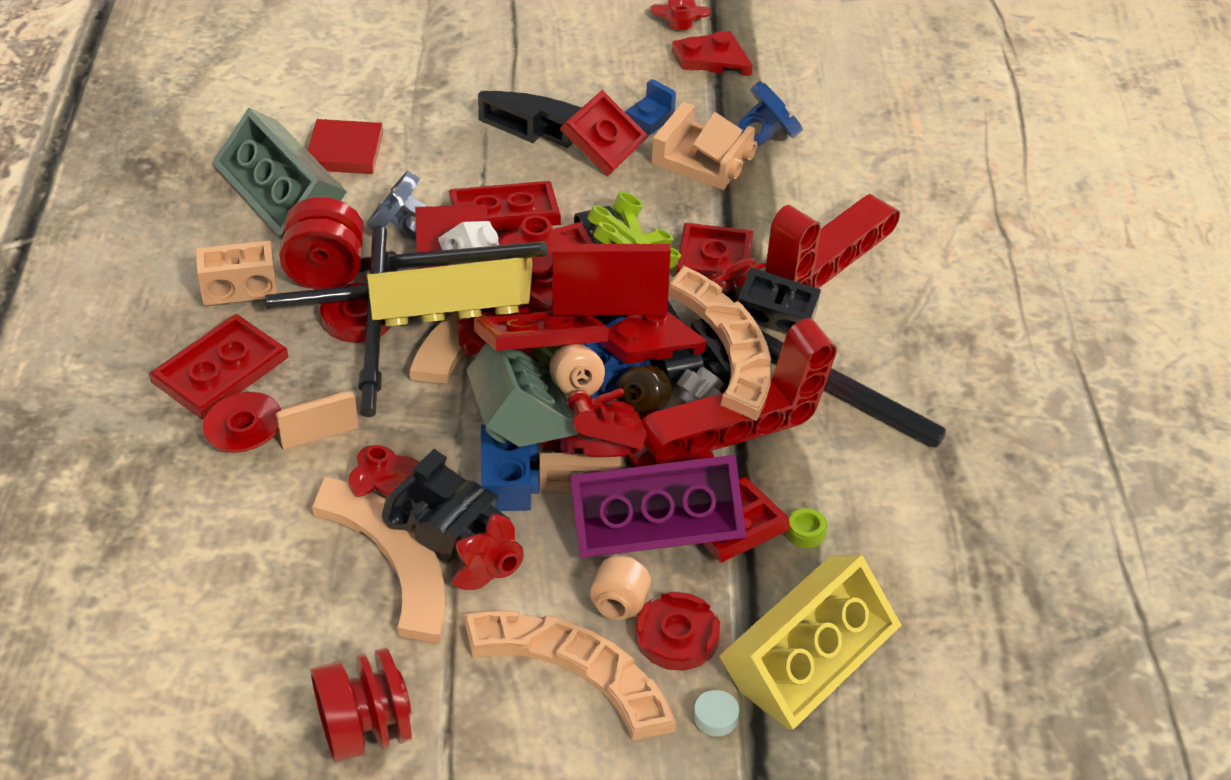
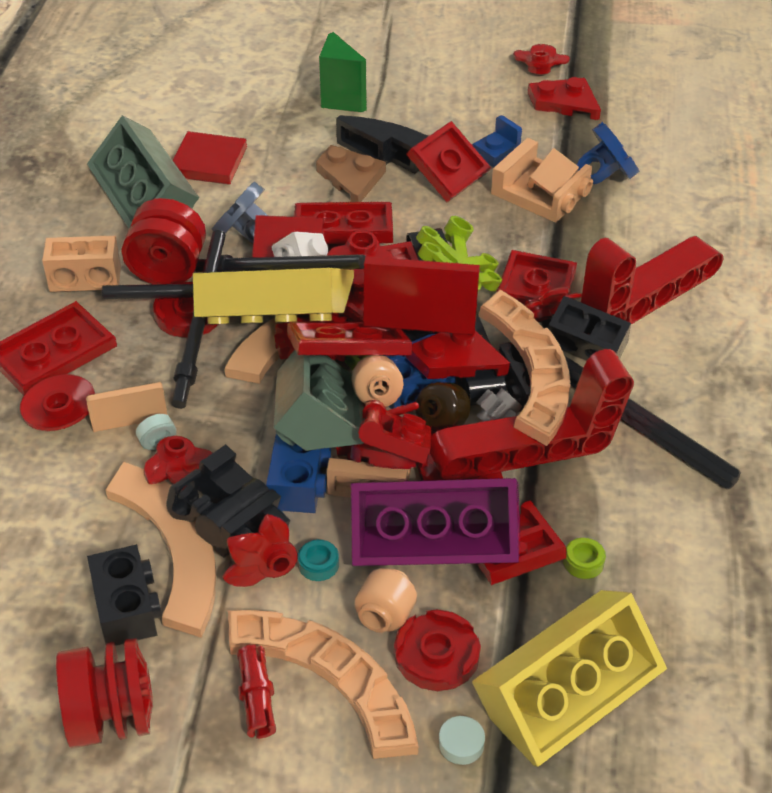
camera: 10 degrees right, 0 degrees up
(351, 441) = (155, 429): none -> light aqua tile
(354, 609) = (120, 587): none -> black brick
(476, 47) = (342, 76): none -> green slope
(500, 150) = (350, 171): none -> medium nougat wing
(507, 689) = (256, 692): none -> red pin
(544, 556) = (318, 560): none -> teal tile

